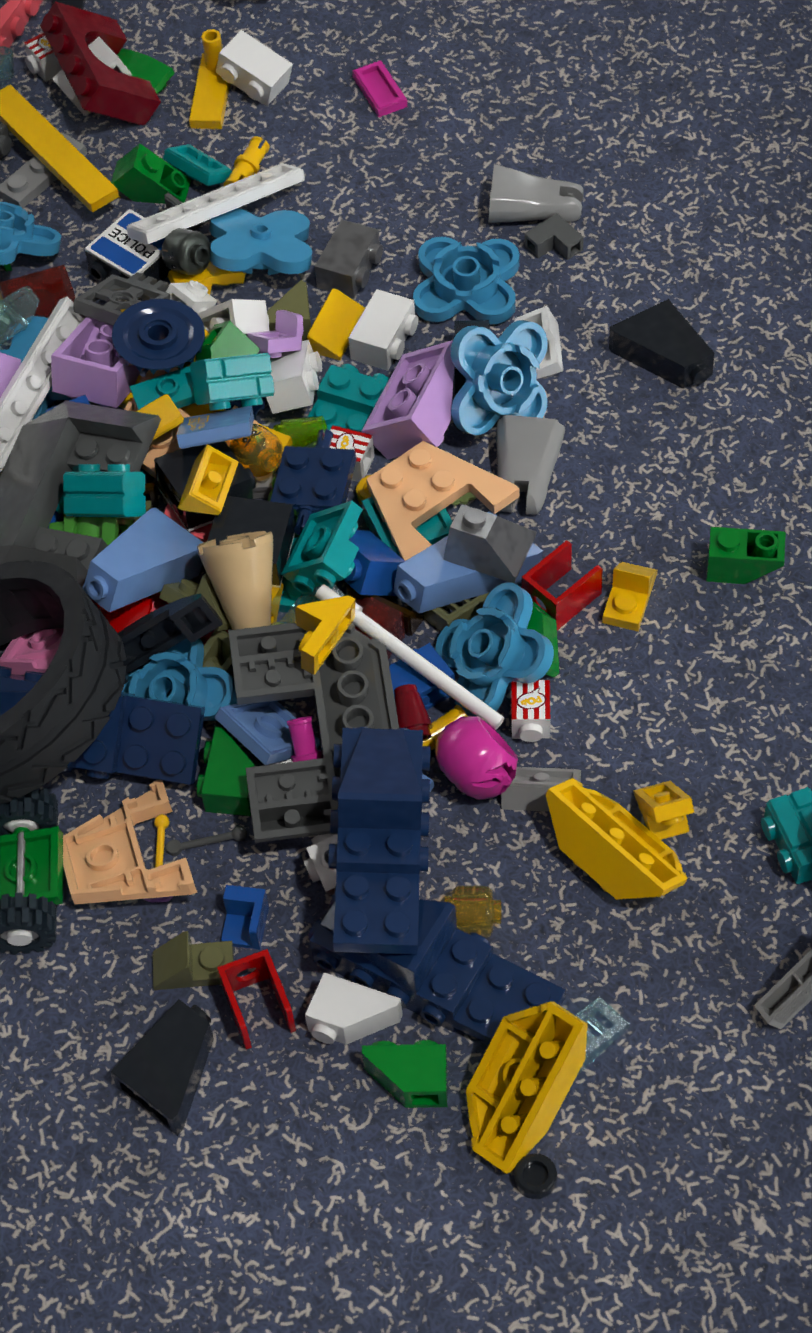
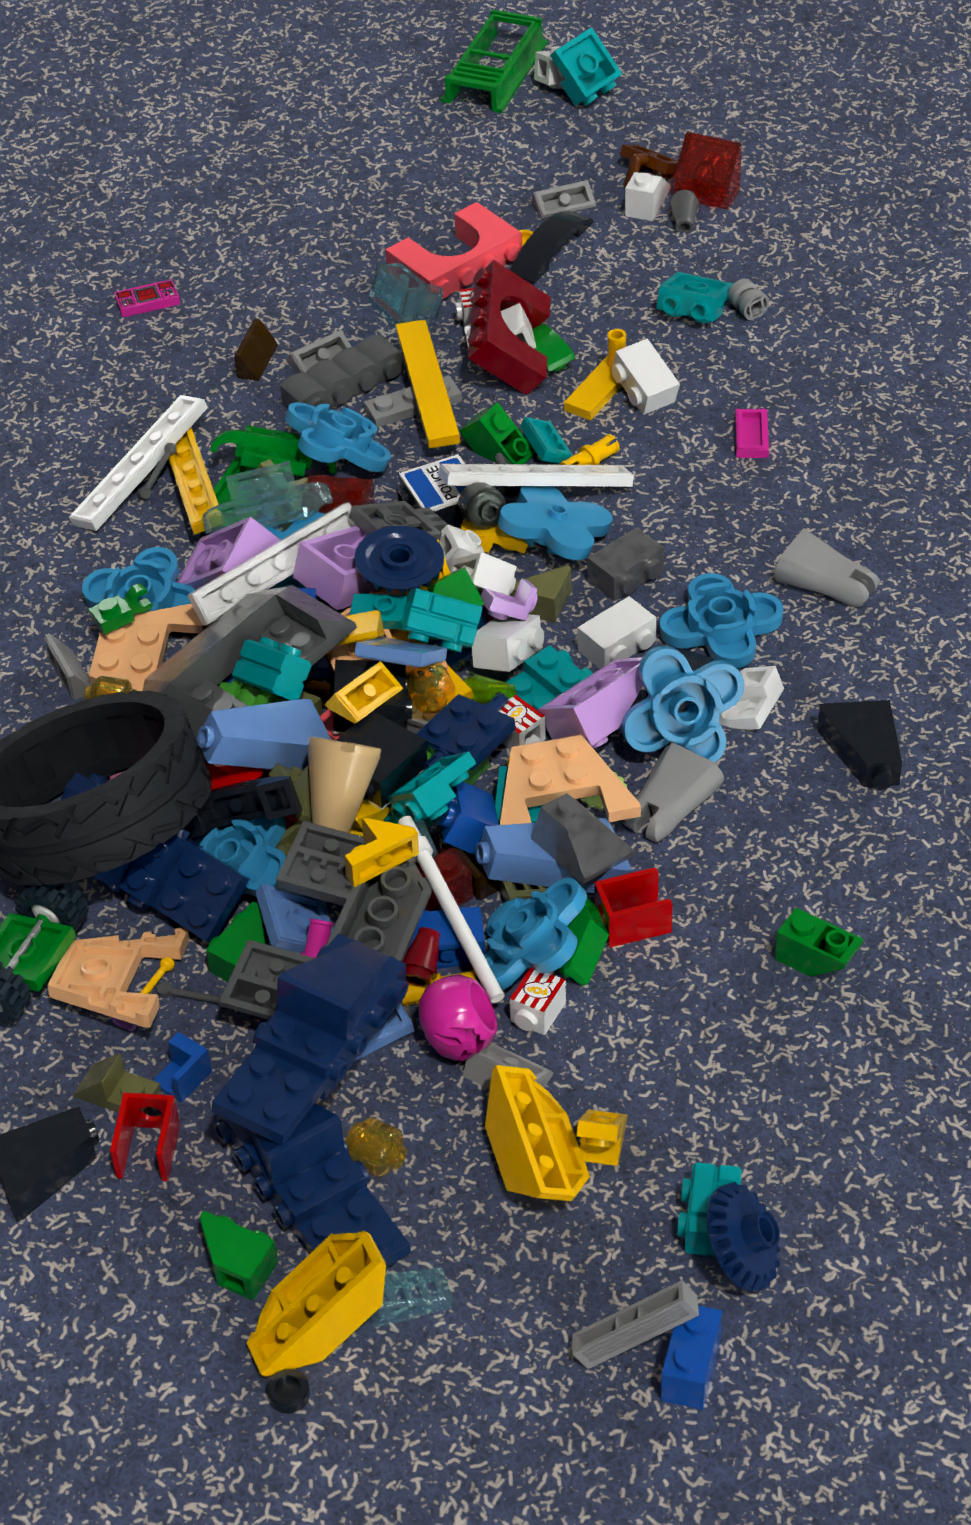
camera: 25 degrees right, 10 degrees down
(334, 325) = (578, 609): yellow slope -> none
(349, 1011) = (216, 1181): white slope -> none
(554, 234) = (825, 610): dark grey piece -> none
(629, 595) = (694, 942): yellow slope -> none

